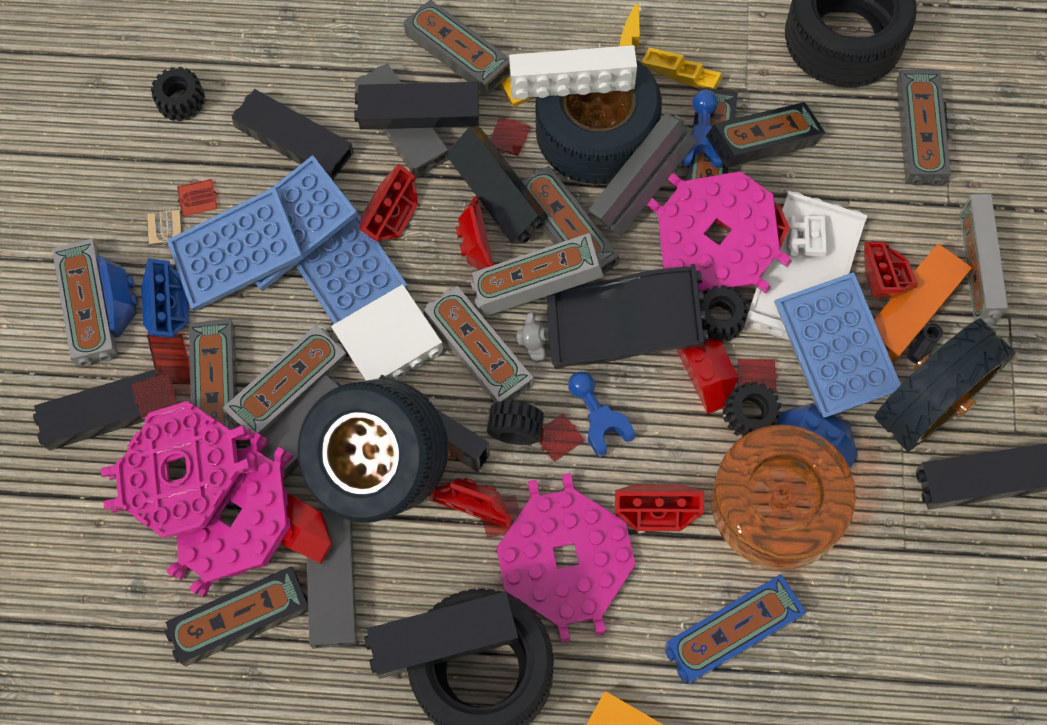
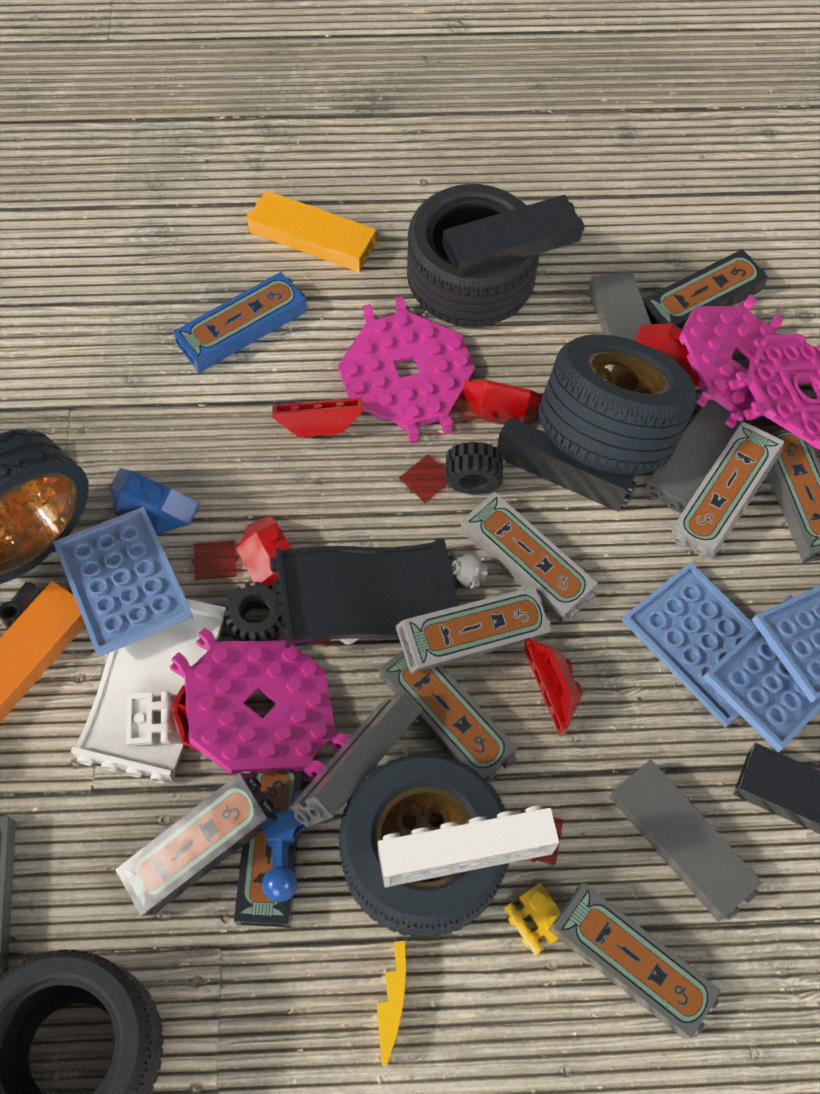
camera: 170 degrees right, 5 degrees down
(388, 336) = (631, 554): white panel -> none
(390, 206) = (669, 706): red wedge -> none
(417, 105) = (667, 842): black brick -> none
(496, 185) = (542, 747): black brick -> none
(600, 418) = (384, 493): blue piece -> none
(681, 70) = (313, 965): yellow slope -> none
(757, 394) = (219, 495): black tyre -> none
(799, 455) = (182, 380): clear orange wheel -> none
(887, 271) = (52, 674): red wedge -> none

